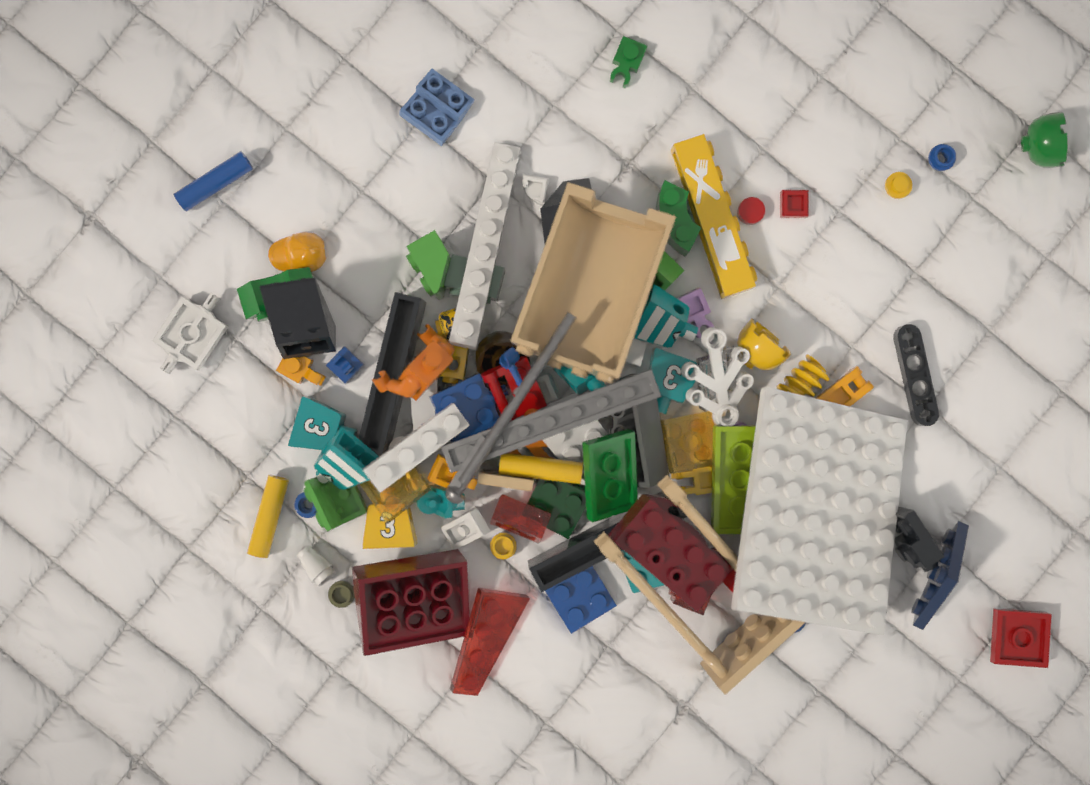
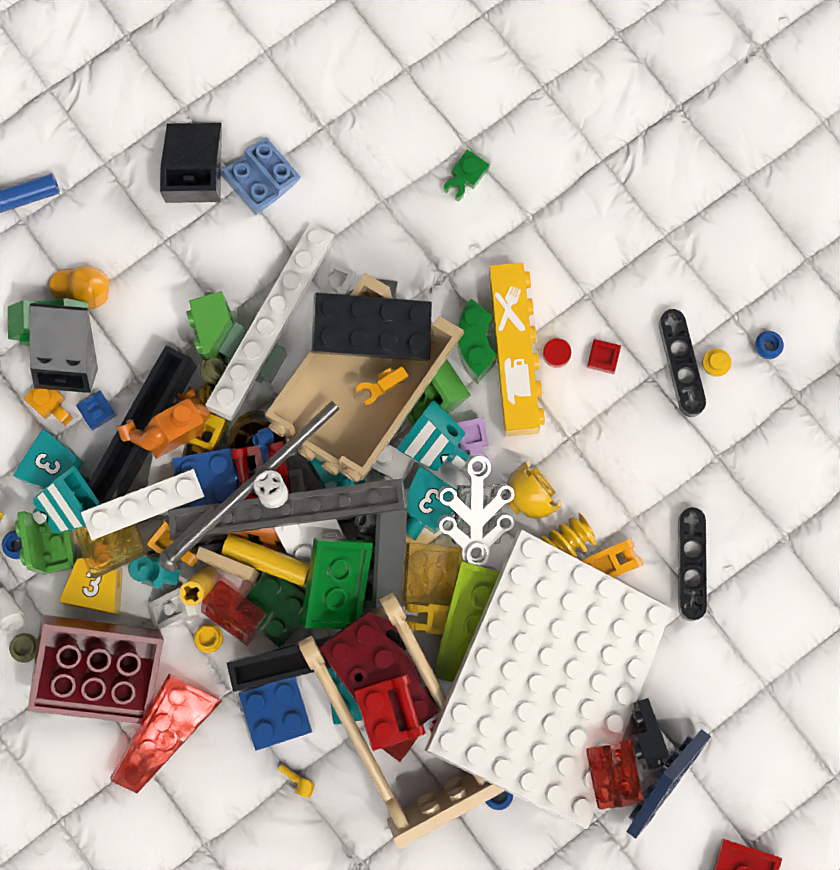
camera: 15 degrees right, 10 degrees down
(369, 109) = (191, 163): none -> black slope
(444, 305) = (211, 370): none -> olive plate
(486, 508) = (199, 585): none -> yellow piece
(528, 403) = (265, 484): none -> white wheel
(587, 233) = (371, 327): none -> black plate
(613, 279) = (387, 381): none -> light orange plate
(621, 652) = (304, 788): none -> yellow hand
(683, 587) = (379, 715): none -> red plate
(871, 191) = (677, 363): none -> black beam
(898, 584) = (614, 774): none -> clear red bracket

